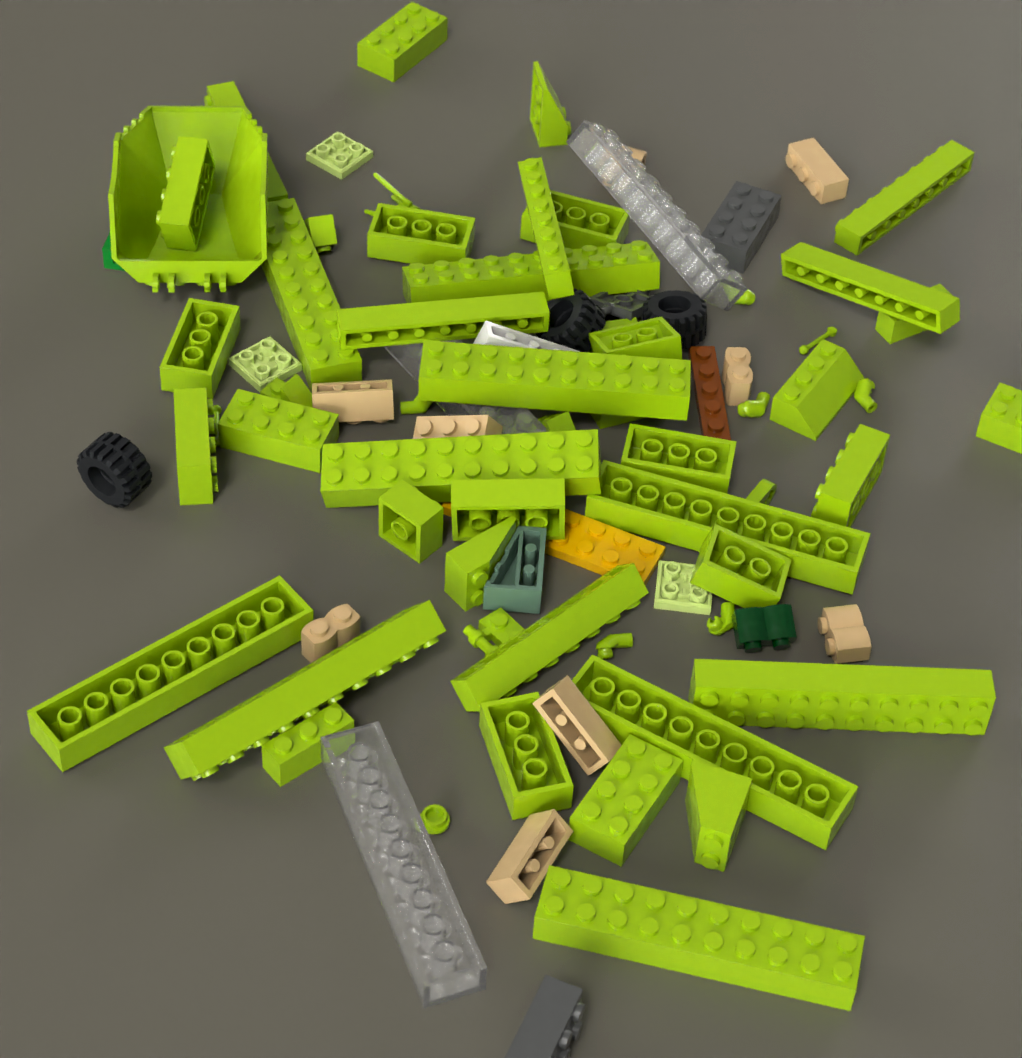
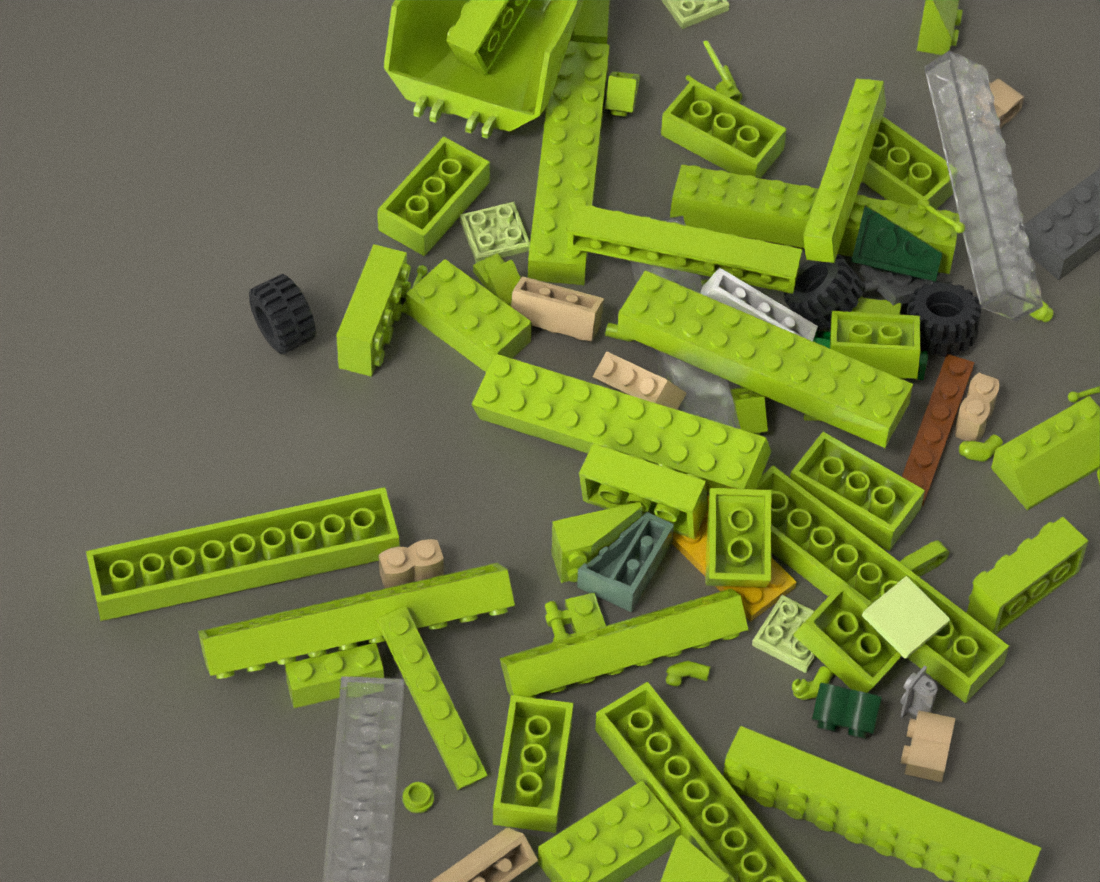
camera: 25 degrees right, 10 degrees up
(410, 729) = (431, 698): none -> lime plate
(411, 521) = (546, 468): lime brick -> none
(577, 725) = (593, 752): tan brick -> none
(610, 519) = (738, 538): none -> lime slope
(612, 276) = (893, 248): none -> dark green wing
(616, 240) = (923, 204): none -> lime hinge
(780, 534) = (906, 617): none -> yellowish green tile
(822, 593) = (919, 694): none -> light grey hinge

